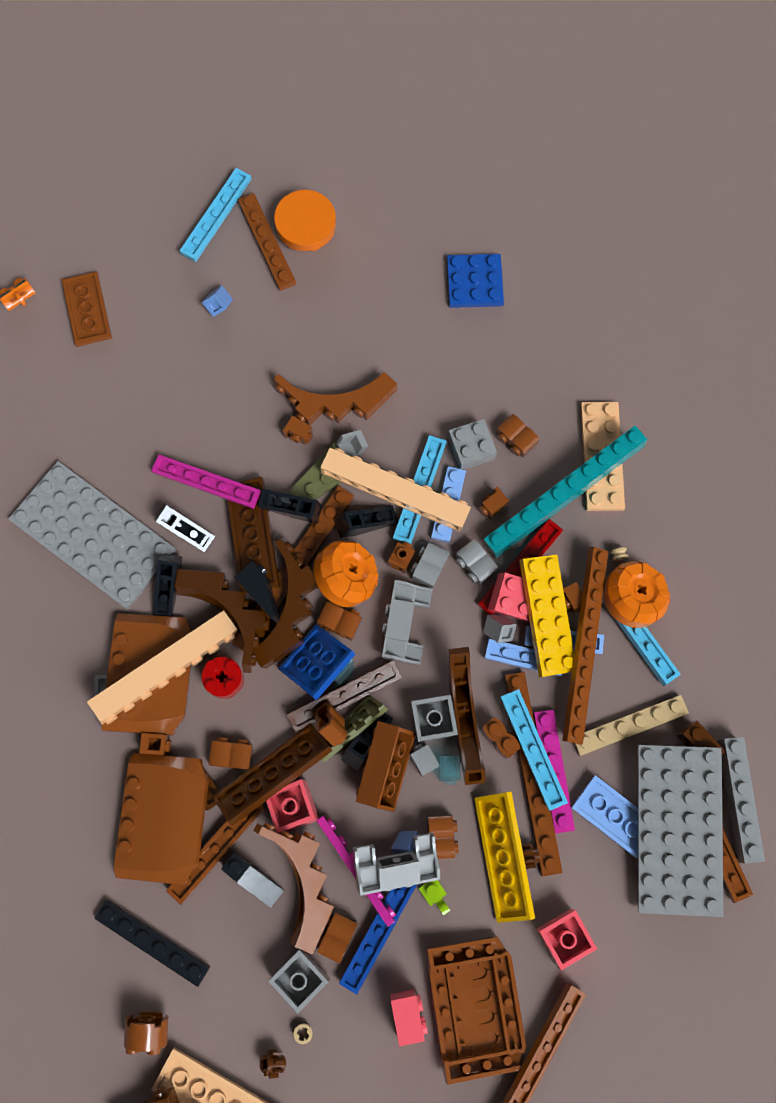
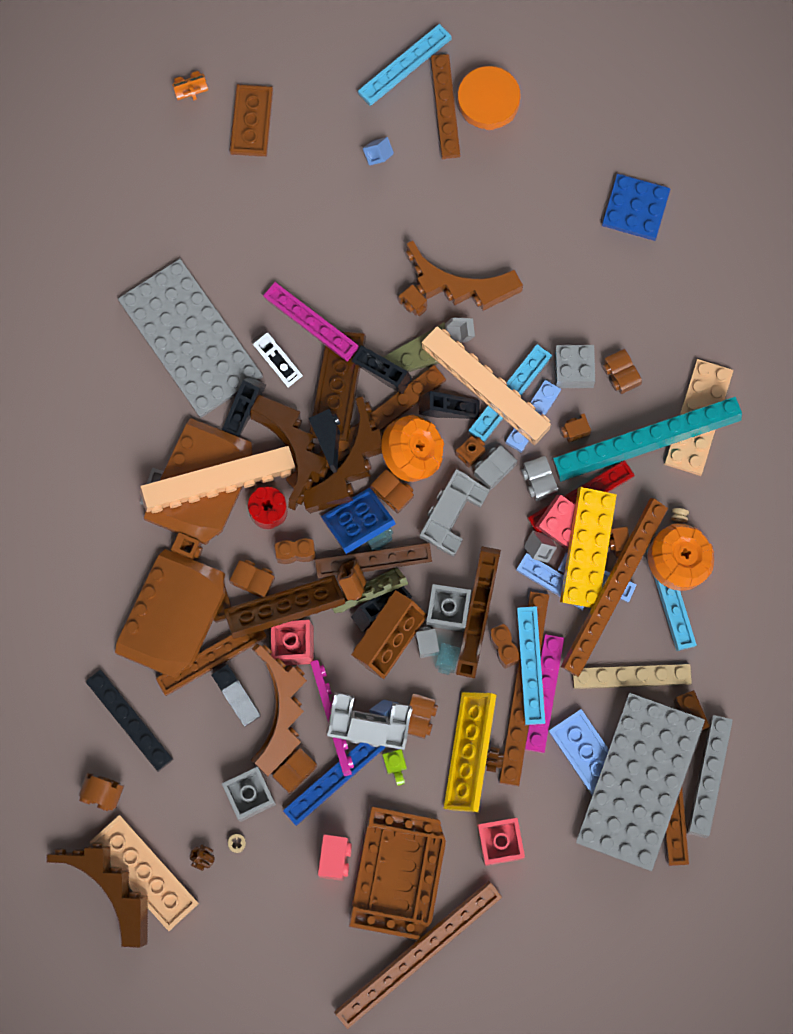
camera: 25 degrees right, 0 degrees up
(259, 714) = (300, 550): none -> dark orange brick

